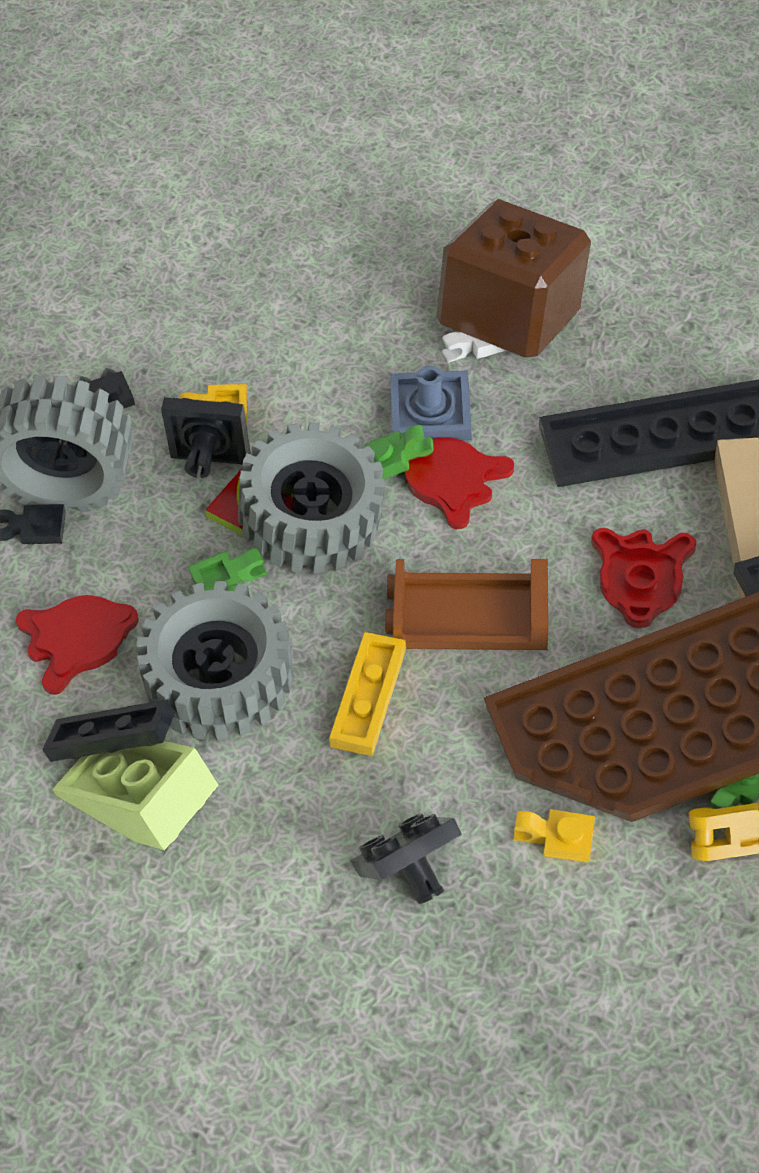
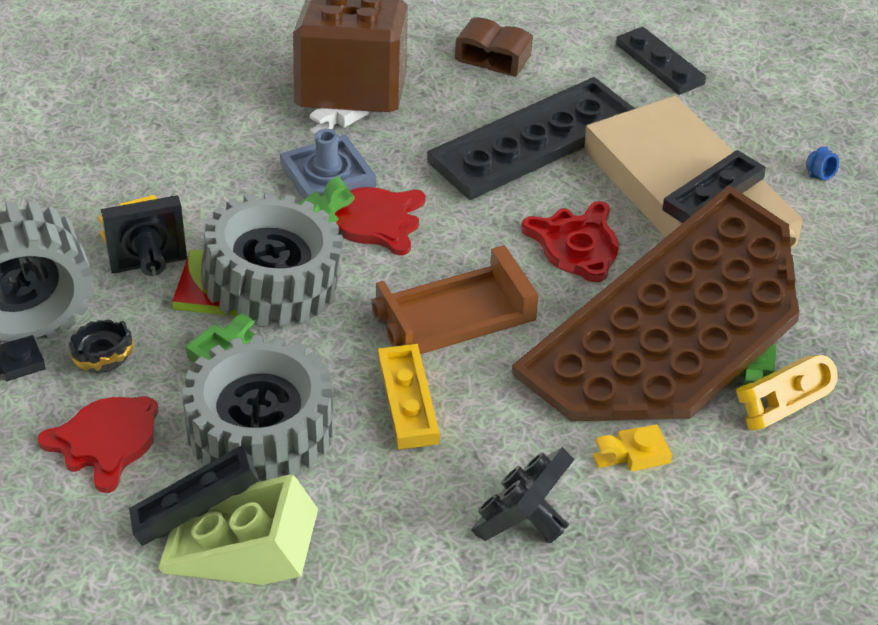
camera: 30 degrees left, 10 degrees down
(114, 538) = (101, 346): none -> black hair
(684, 306) = (494, 47): none -> reddish brown brick

